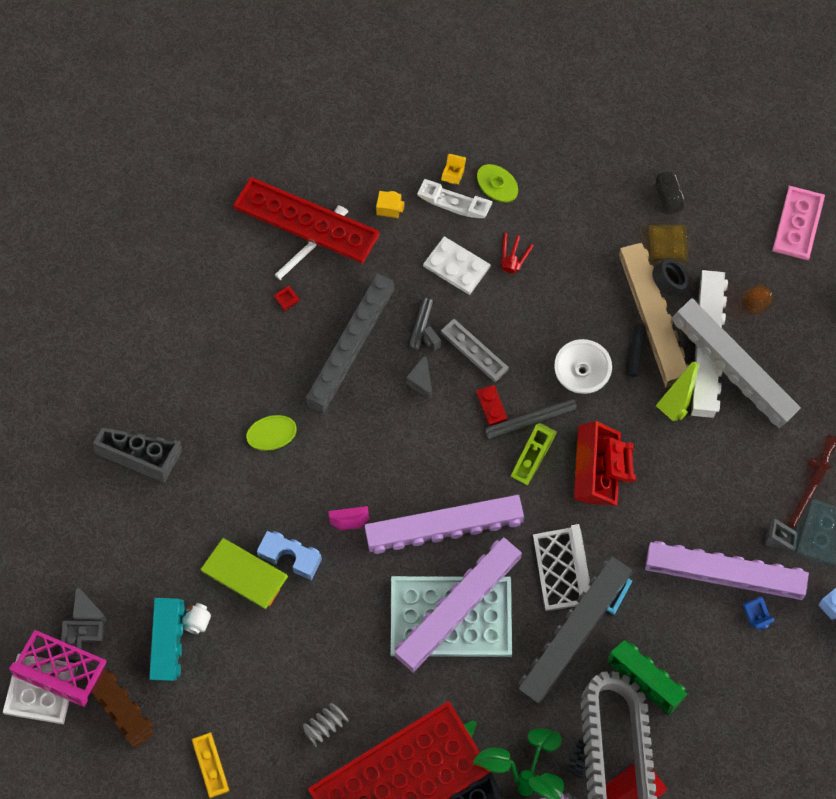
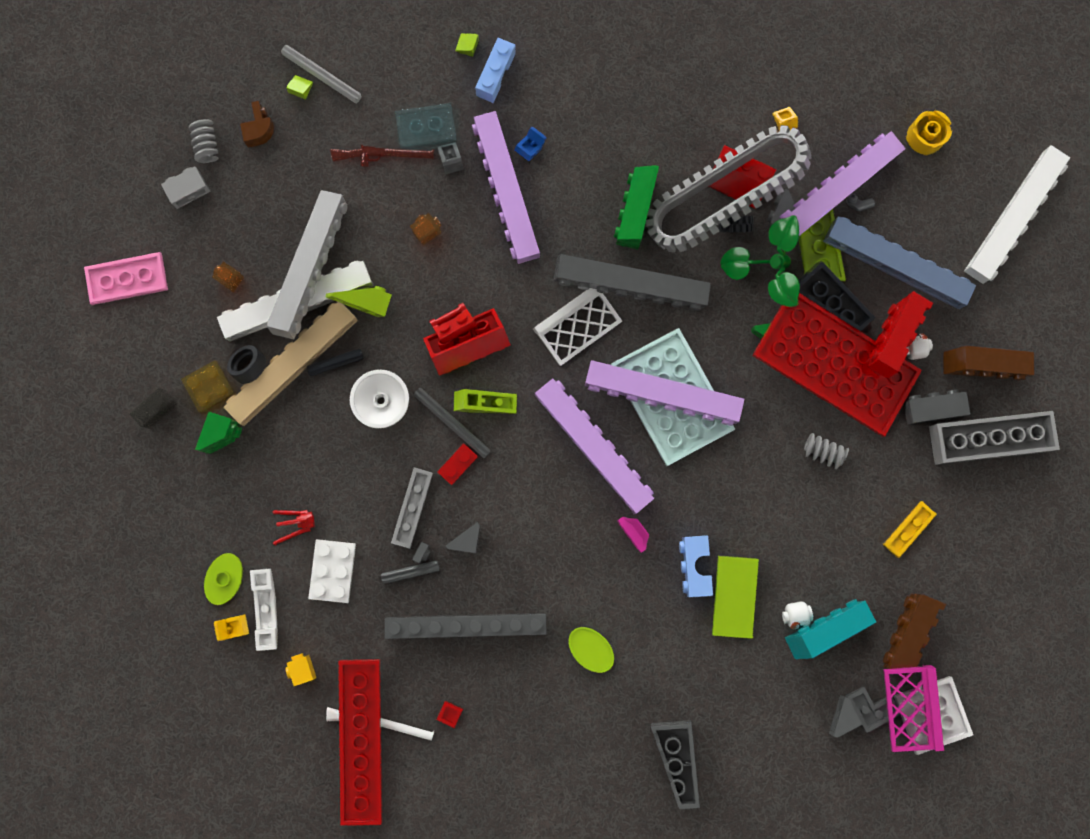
camera: 125 degrees left, 15 degrees up
(623, 228) = (217, 433): none -> green slope
(721, 481) = (426, 228): none -> clear orange brick

